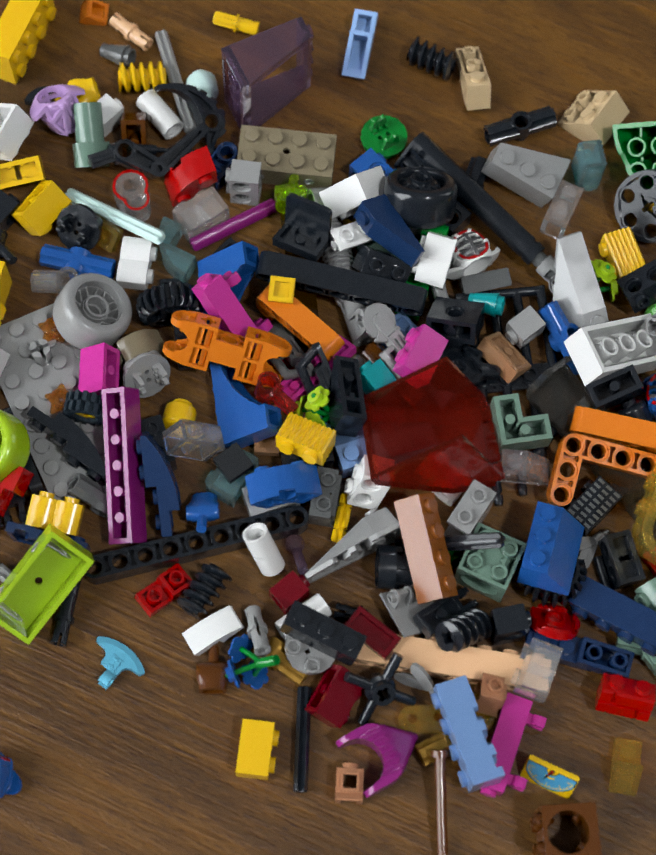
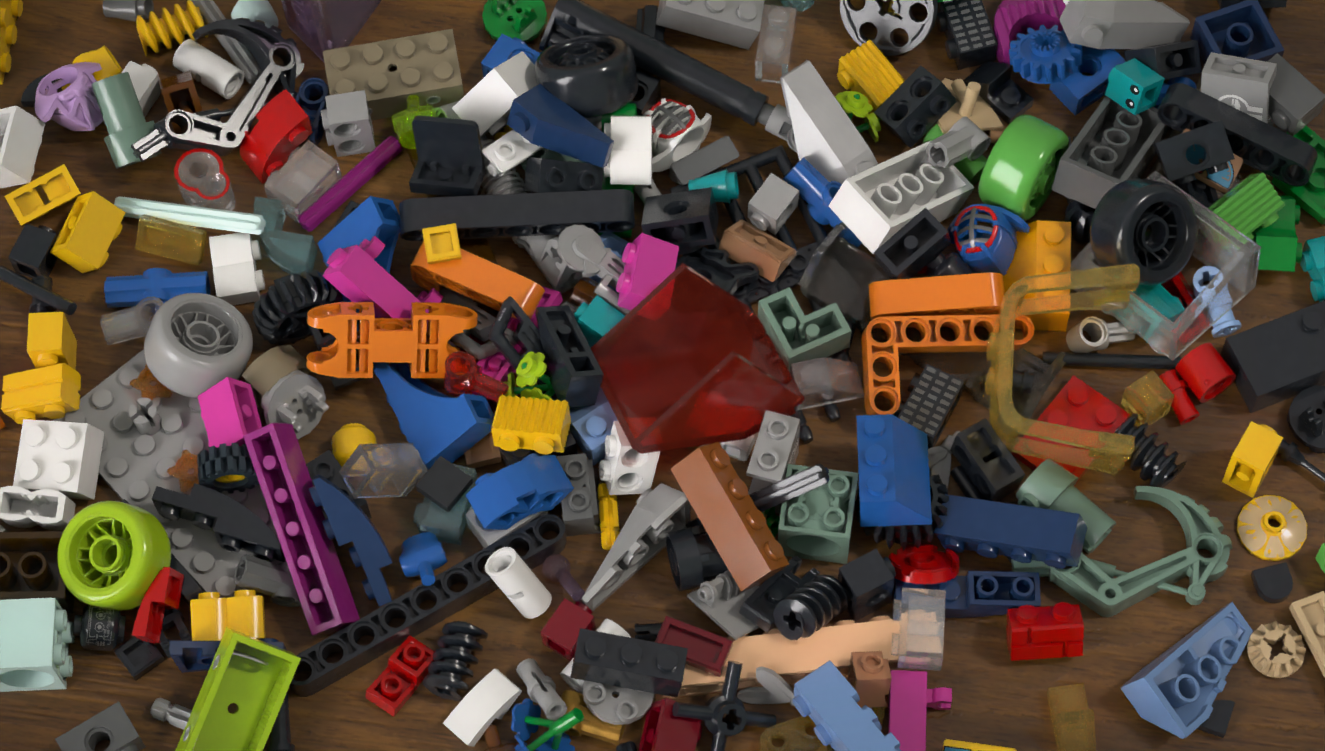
camera: 10 degrees left, 5 degrees down
(69, 221) = (130, 240): black plate -> none

